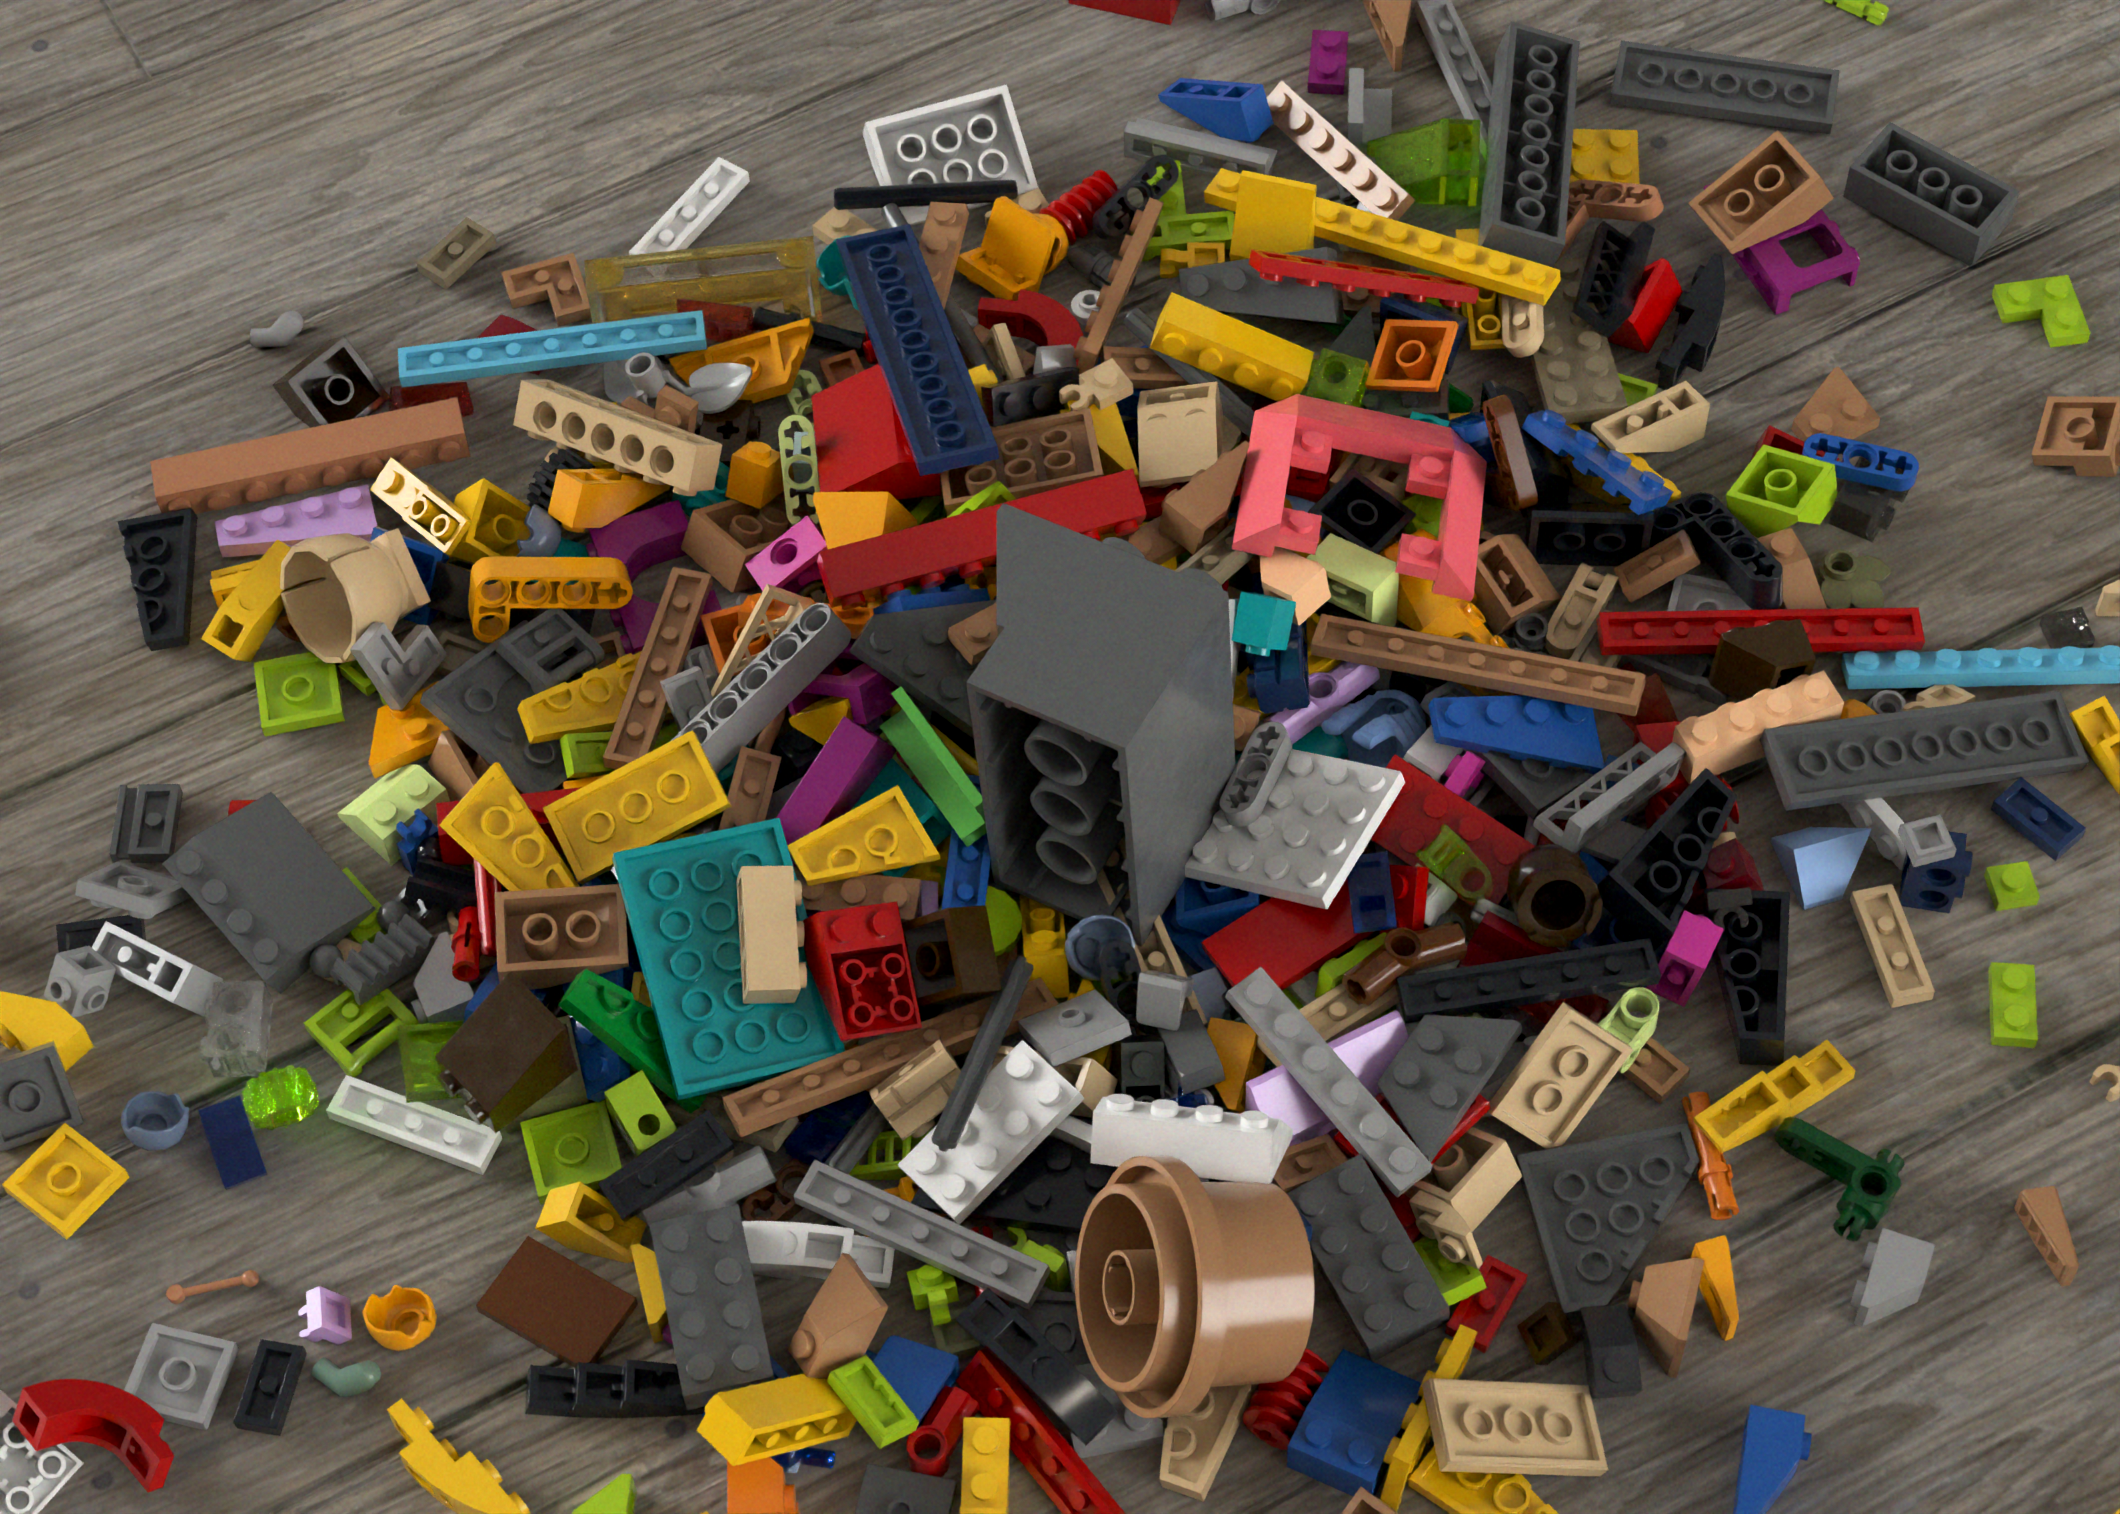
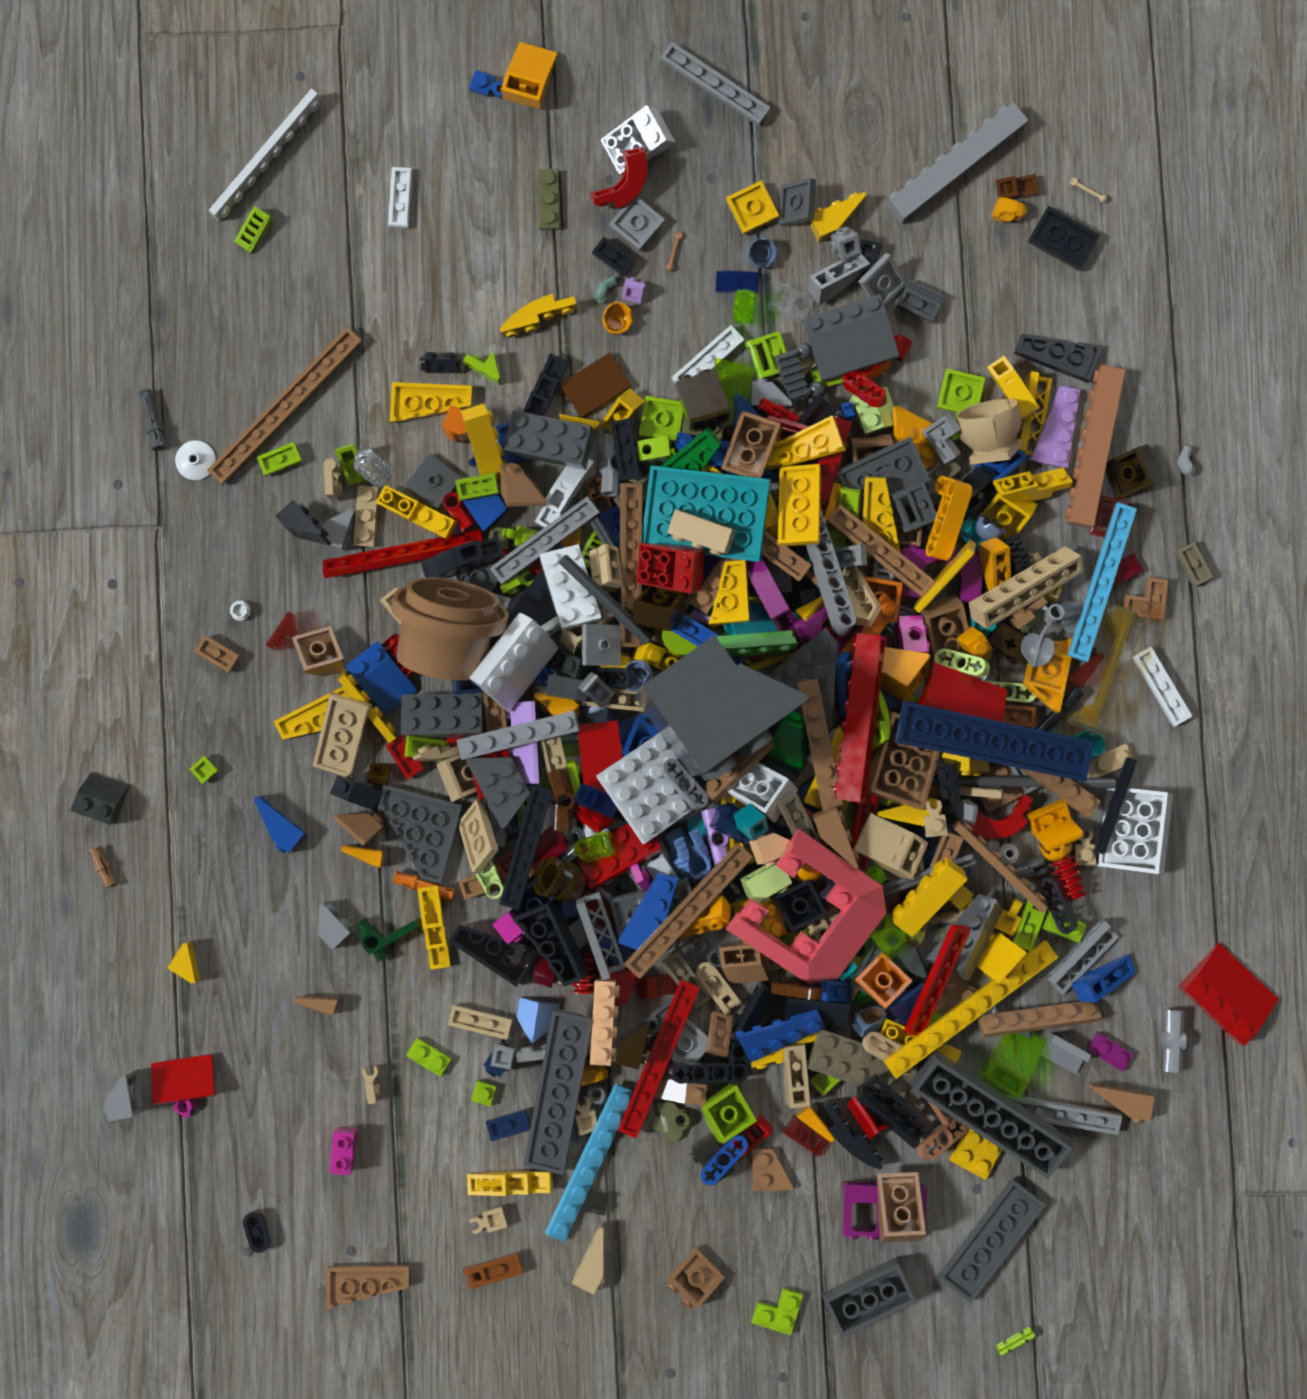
camera: 110 degrees right, 30 degrees up
(341, 839) = (863, 380): none -> red beam
(650, 546) = (946, 575): none -> yellow tile
(1482, 366) = (868, 1020): none -> sand blue rock
(1708, 374) = (812, 1119): none -> light orange slope
(1738, 391) = (795, 1128): none -> clear red slope

